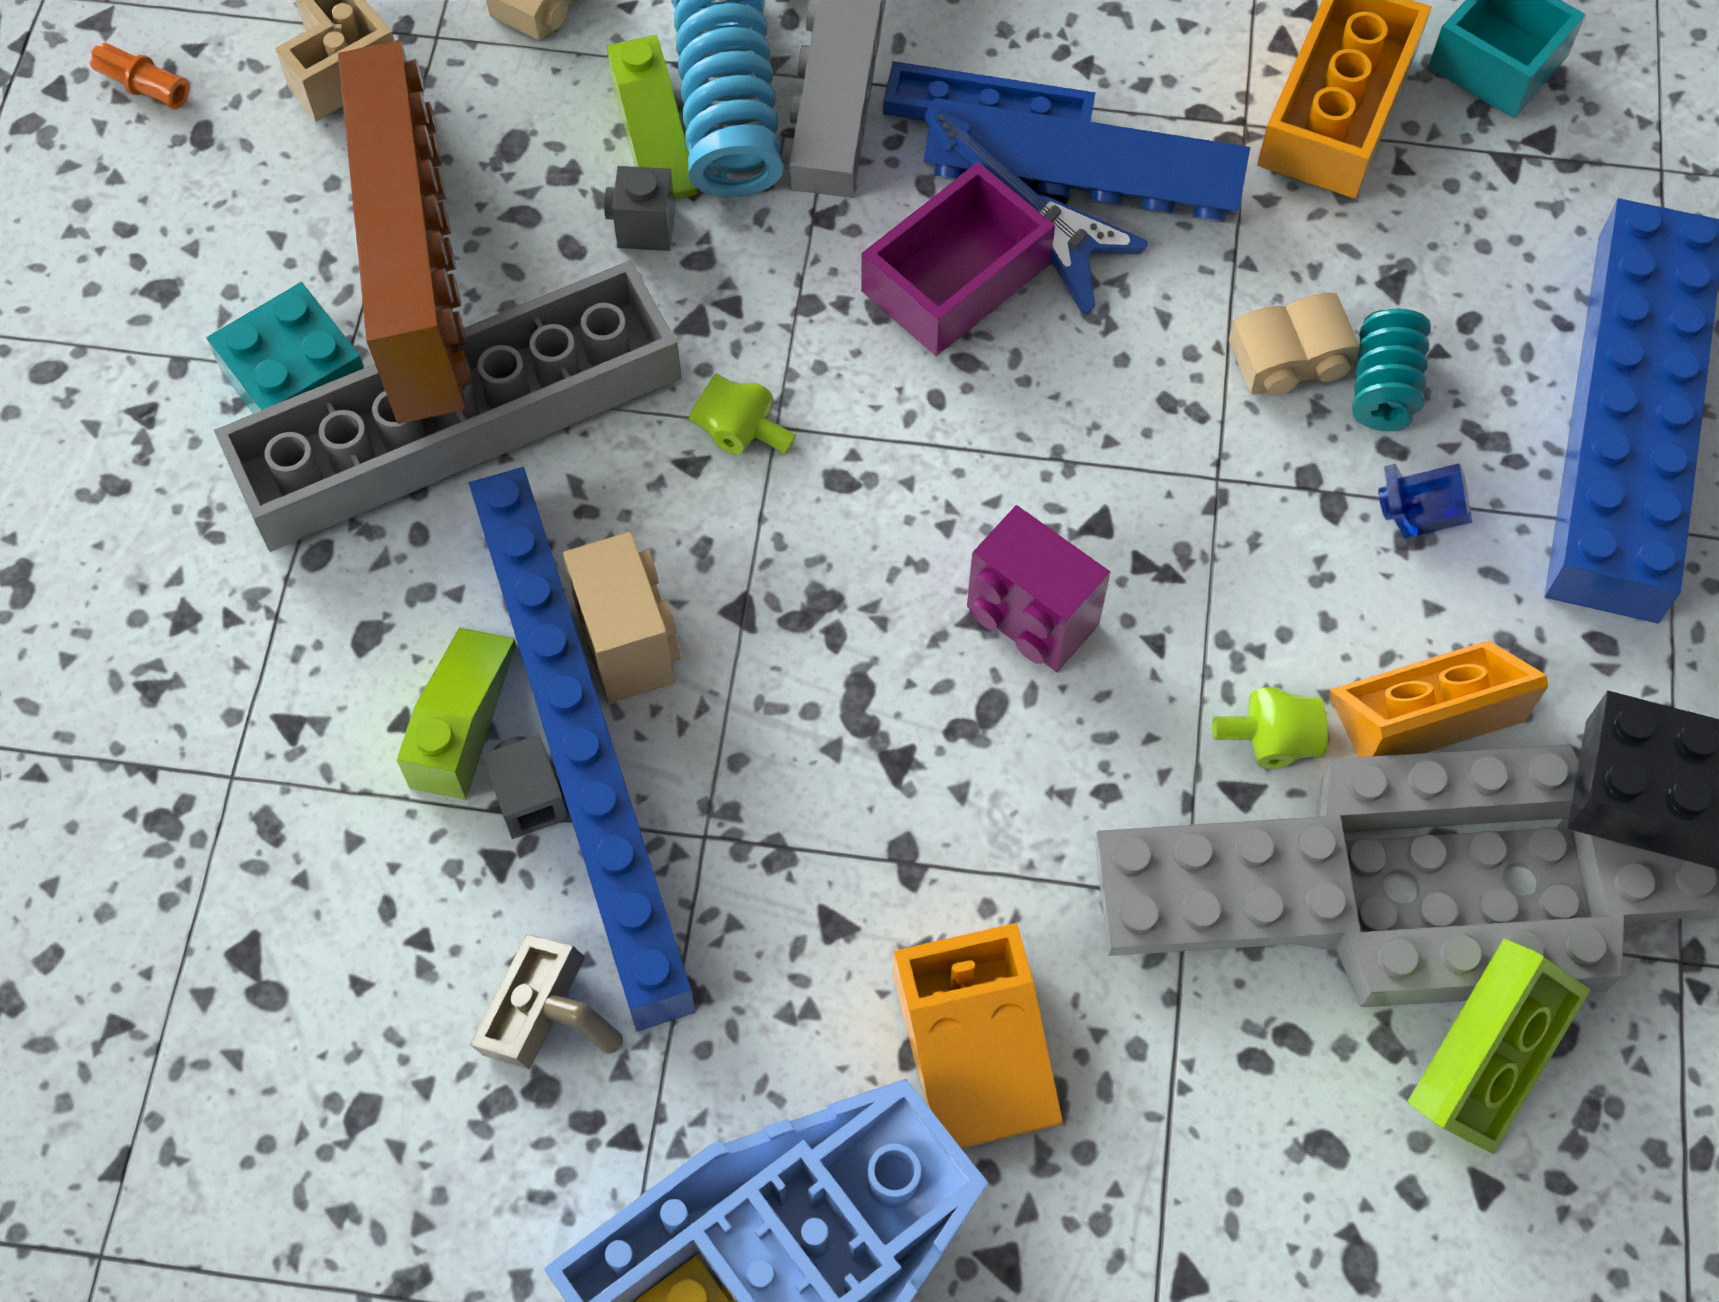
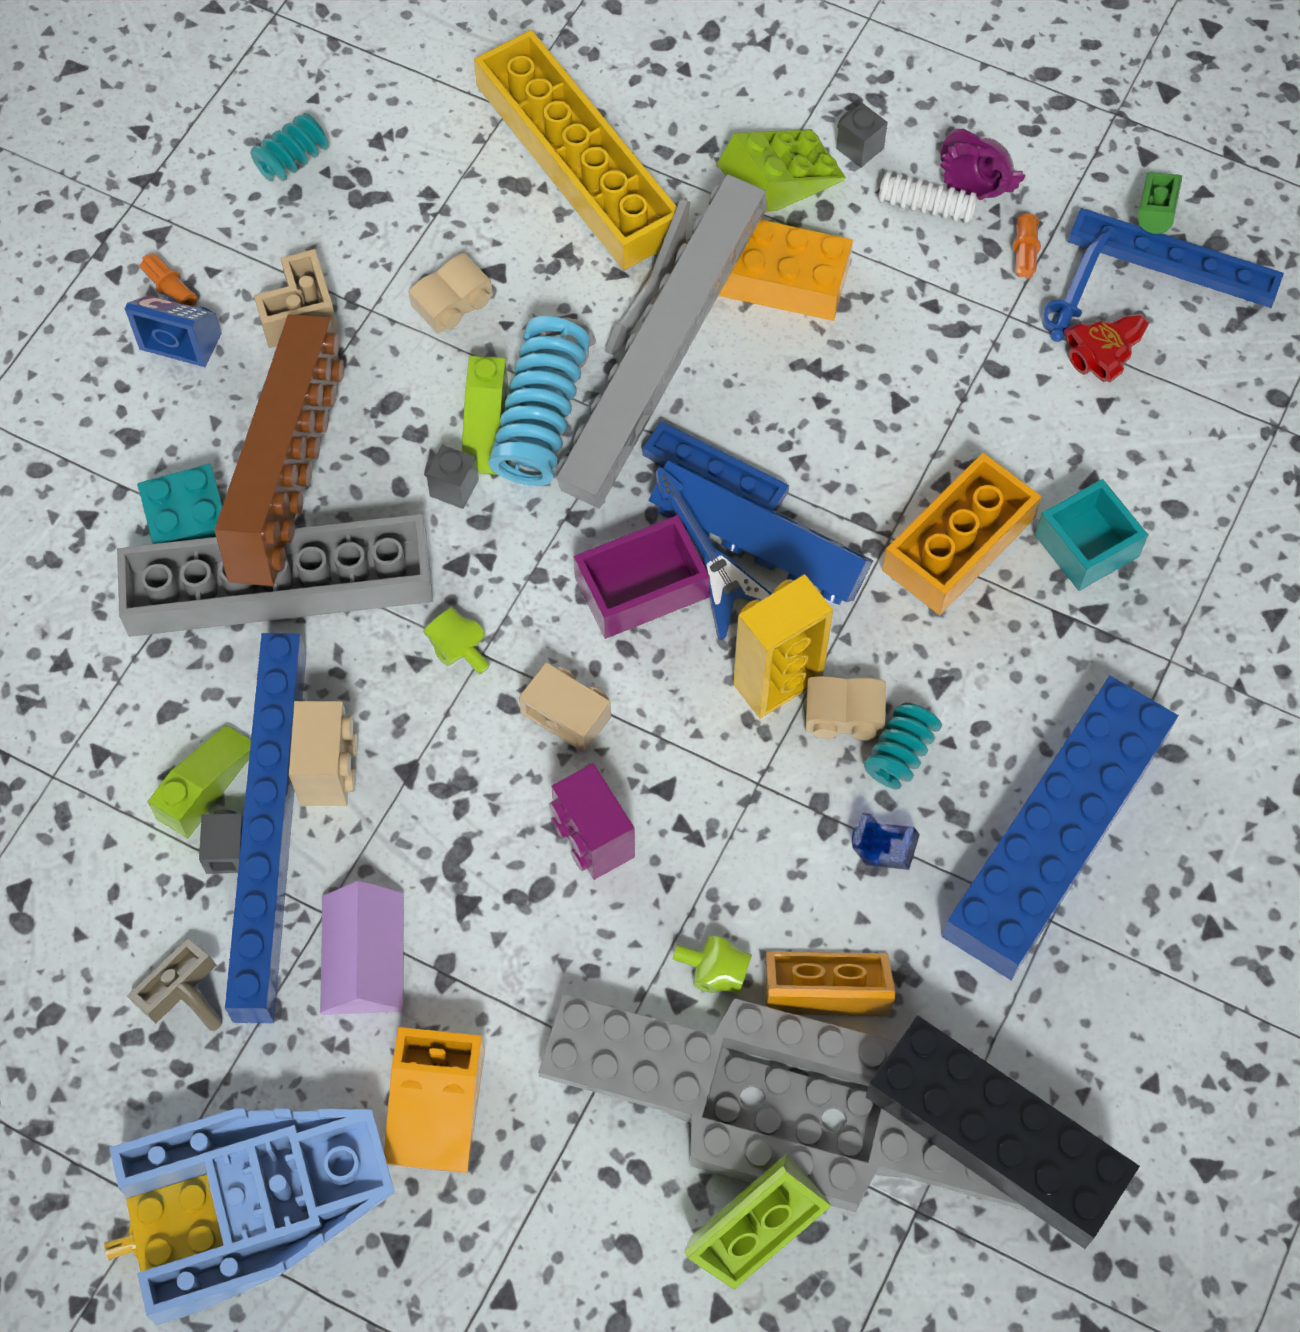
camera: 20 degrees right, 0 degrees up
(174, 130) = (174, 329): none -> blue slope
(780, 869) = (362, 950): none -> lavender slope
(927, 454) = (565, 706): none -> tan brick
(1199, 275) = (781, 644): none -> yellow brick

